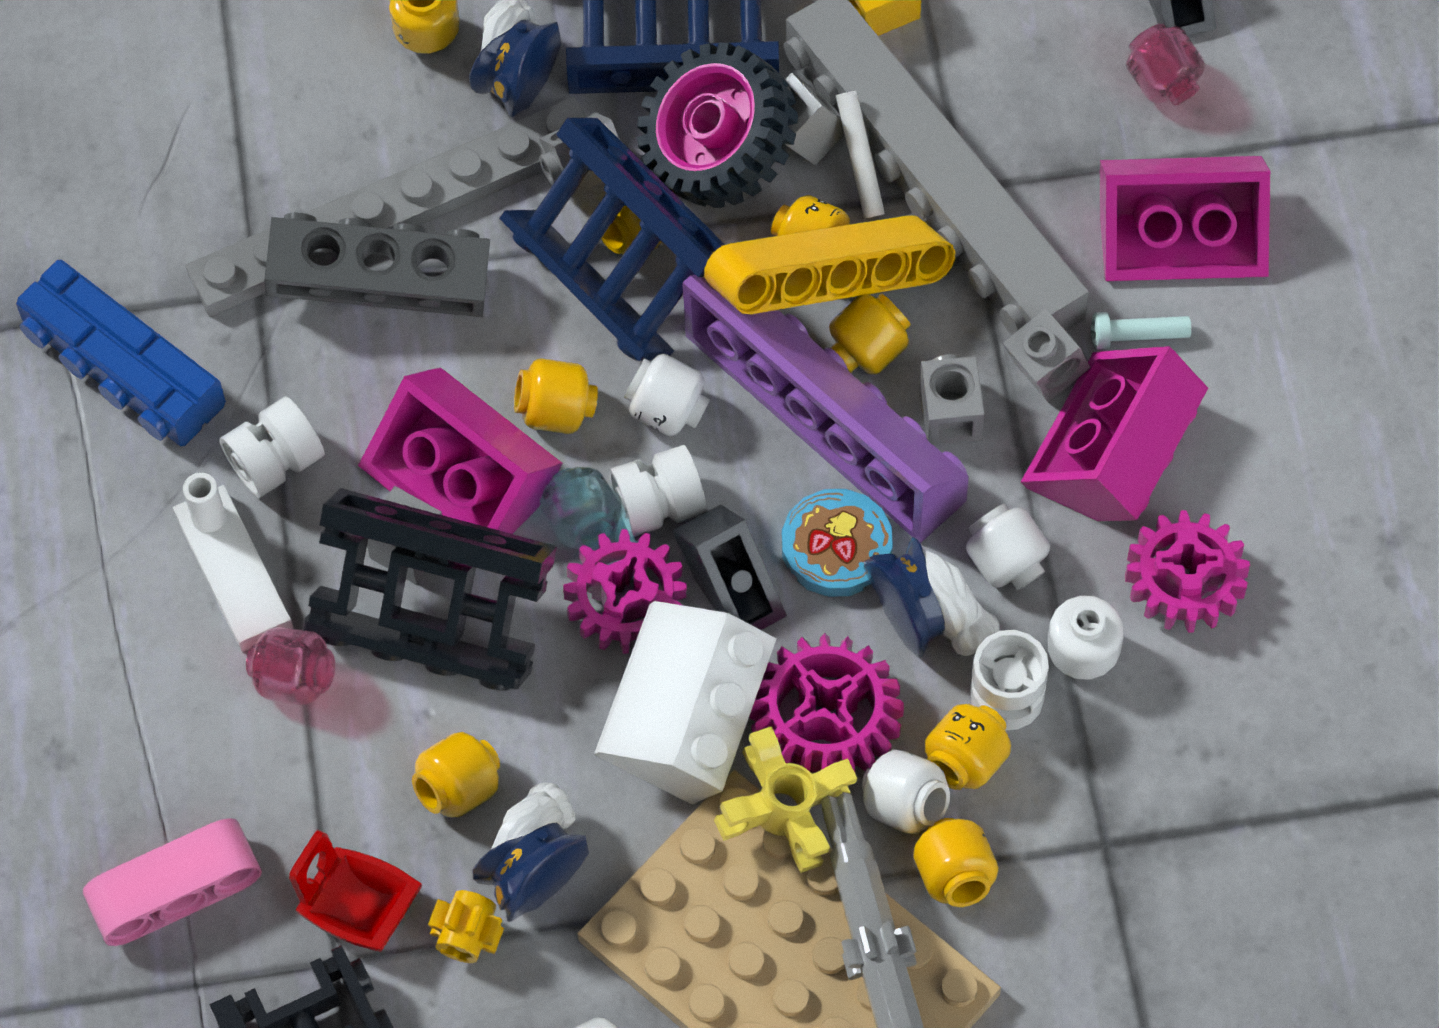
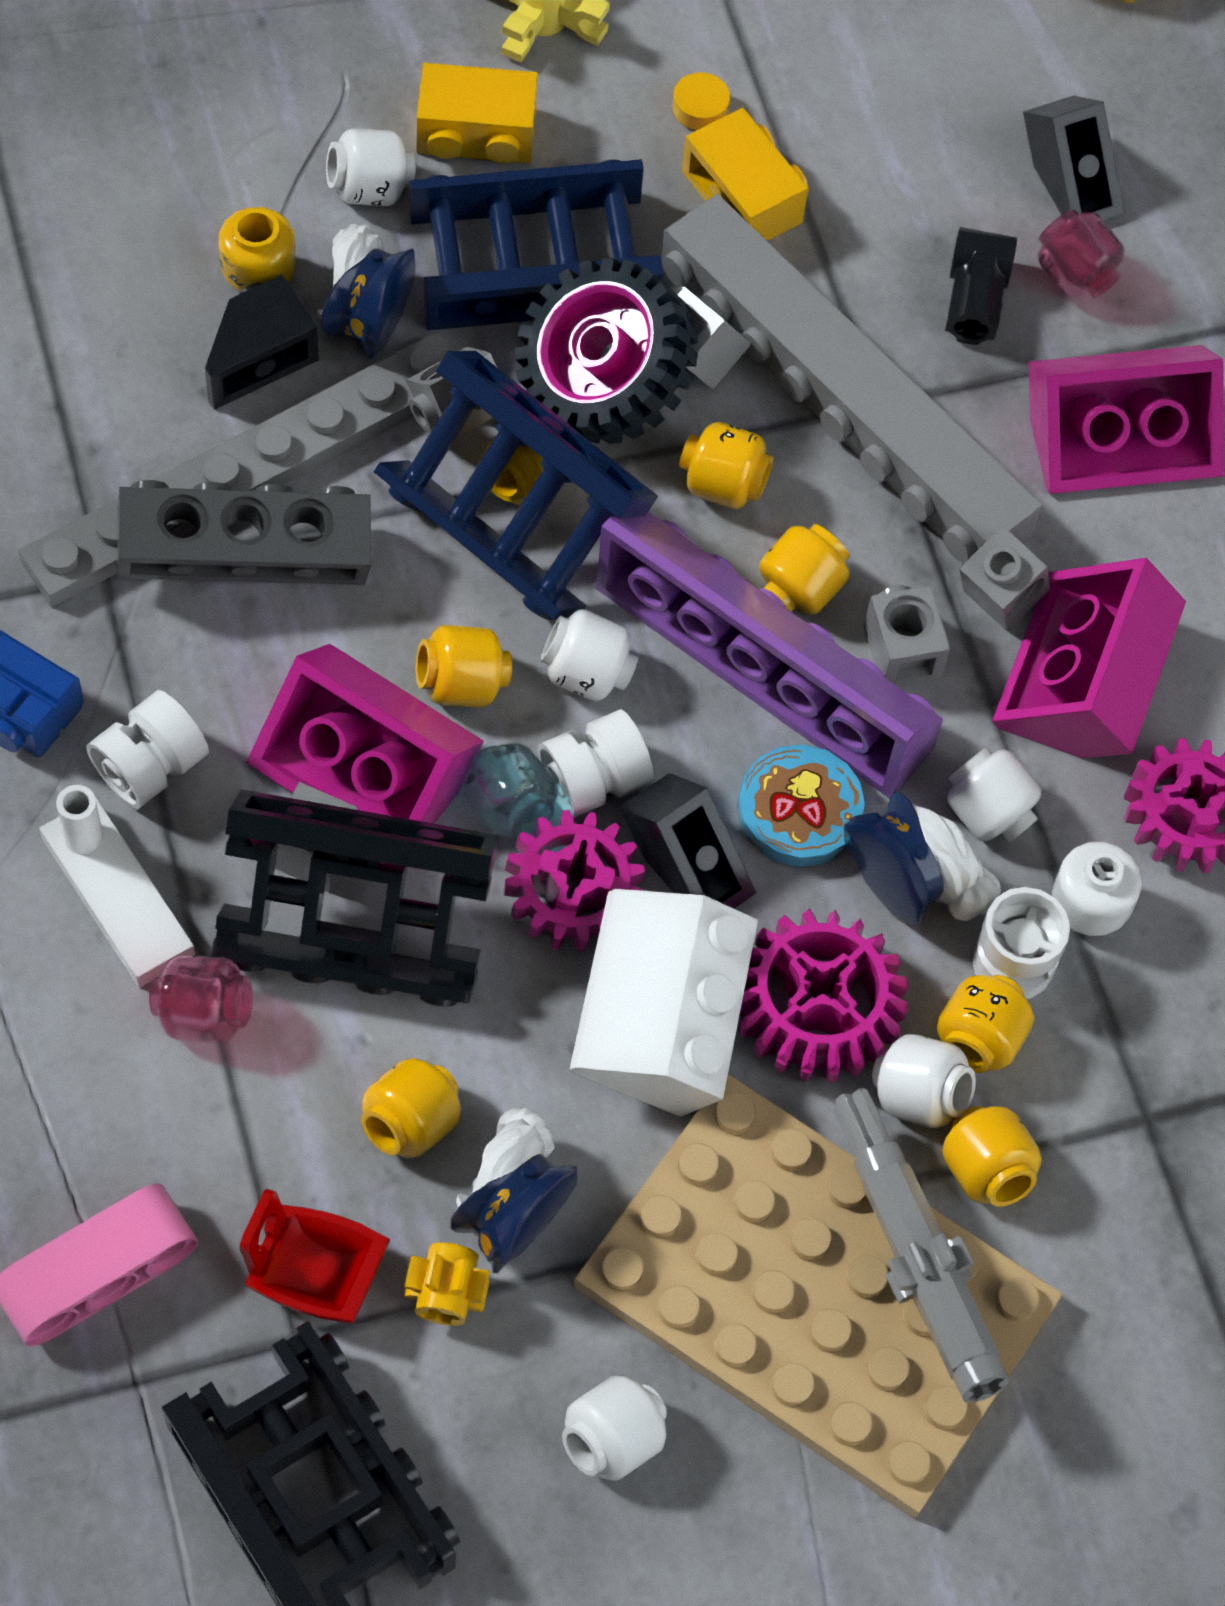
camera: 15 degrees left, 0 degrees up
(415, 95) = (259, 341): none -> black slope
(764, 809) = (776, 1117): light yellow pin -> none
(829, 264) = (755, 495): yellow beam -> none
(860, 154) = (766, 373): white piece -> none
(1070, 74) = (980, 274): none -> black piece
(1106, 330) = (1060, 547): light aqua piece -> none

